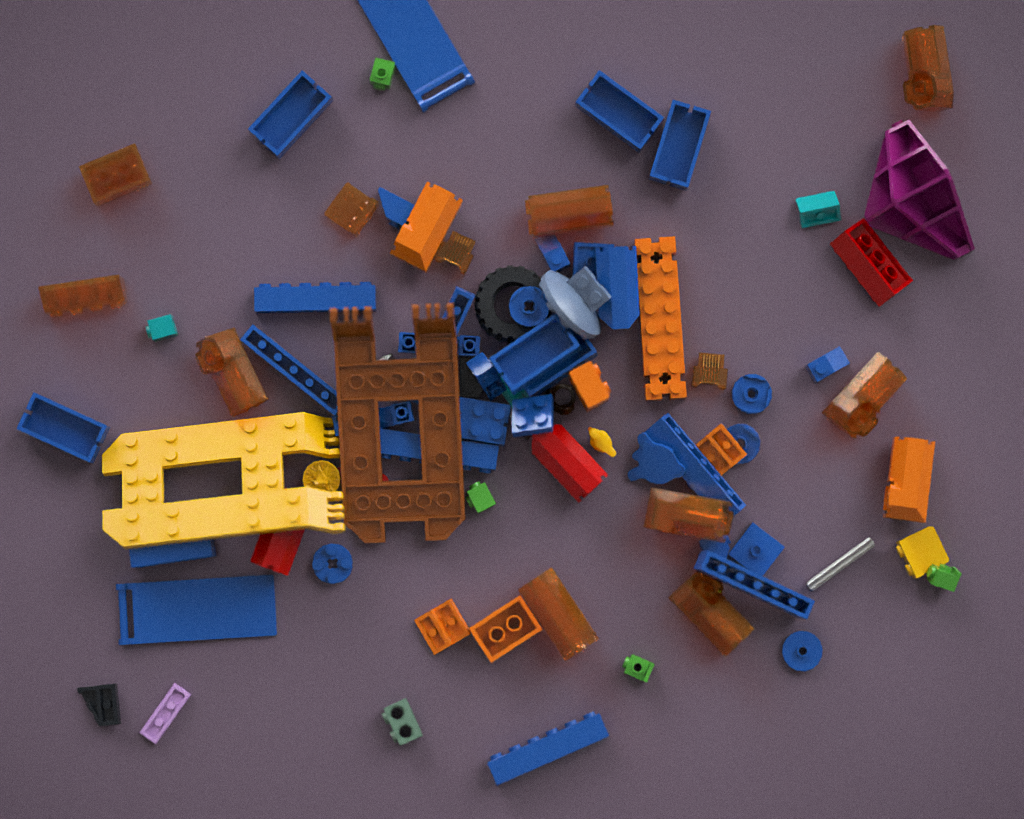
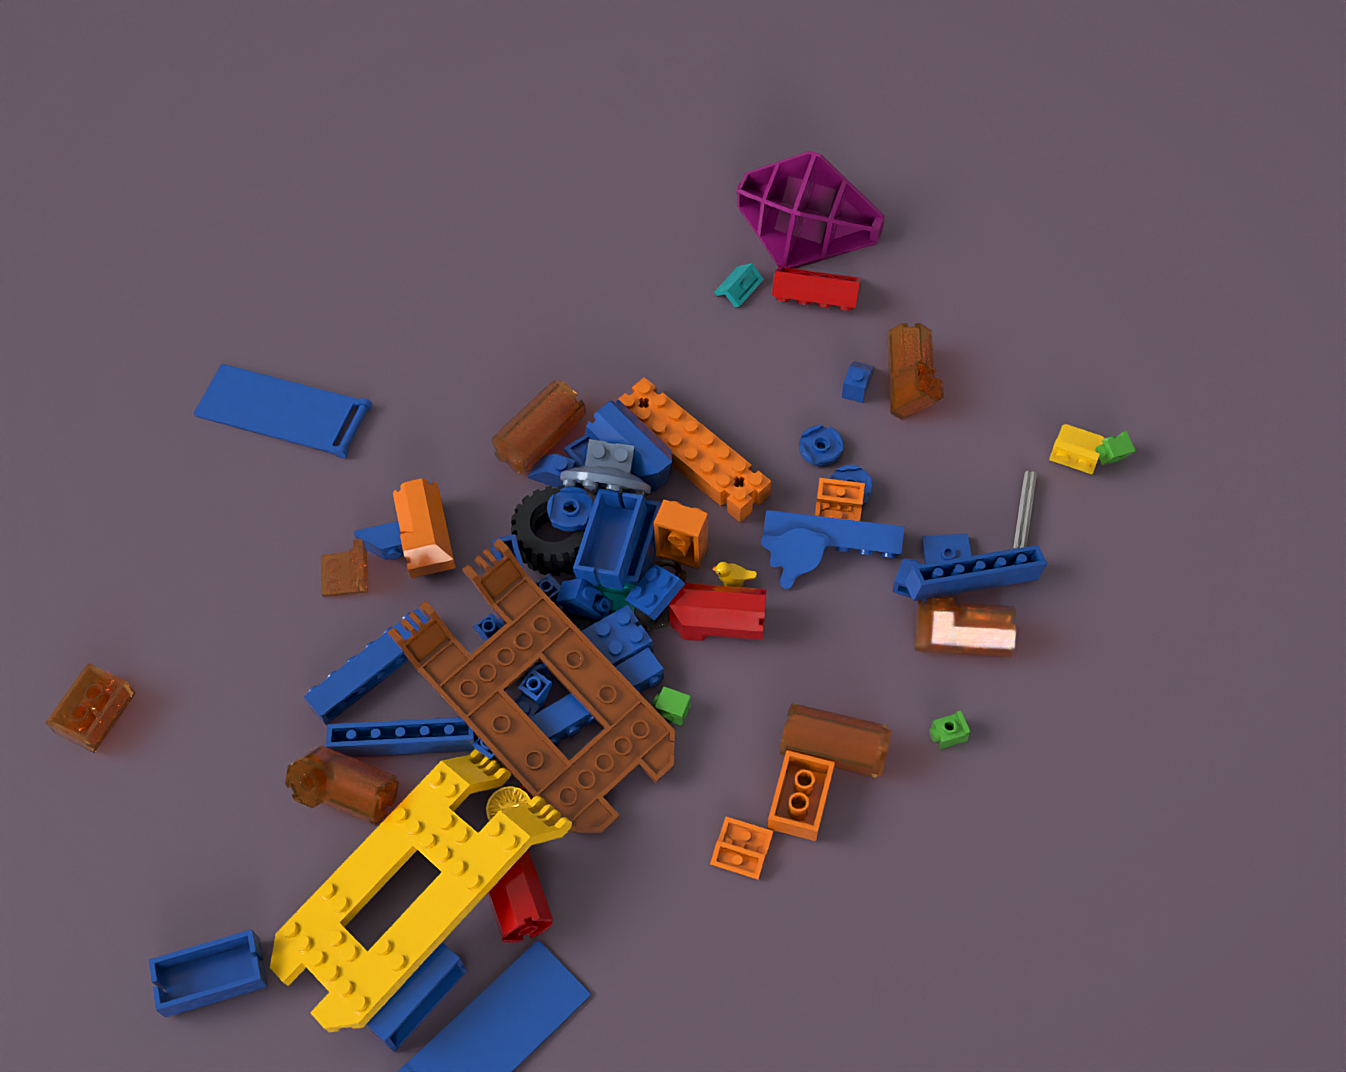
camera: 40 degrees left, 25 degrees down
(83, 294) = (135, 833): clear orange slope -> none
(161, 328) = (241, 804): teal brick -> none
(290, 114) = (223, 539): blue piece -> none
(320, 563) = (597, 889): blue plate -> none
(382, 74) = (283, 452): bright green brick -> none
(408, 719) = (790, 959): sand green brick -> none
(457, 252) = (469, 534): clear orange piece -> none
(547, 749) = (942, 871): blue brick -> none
(619, 111) = (512, 331): blue piece -> none
(679, 145) = (585, 318): blue piece -> none
(688, 515) = (864, 564): clear orange brick -> none
(710, 371) = (771, 455): clear orange piece -> none
(791, 648) = (1066, 611): blue plate -> none
(910, 479) = (1010, 401): orange brick -> none
(928, 69) = (725, 135): clear orange brick -> none

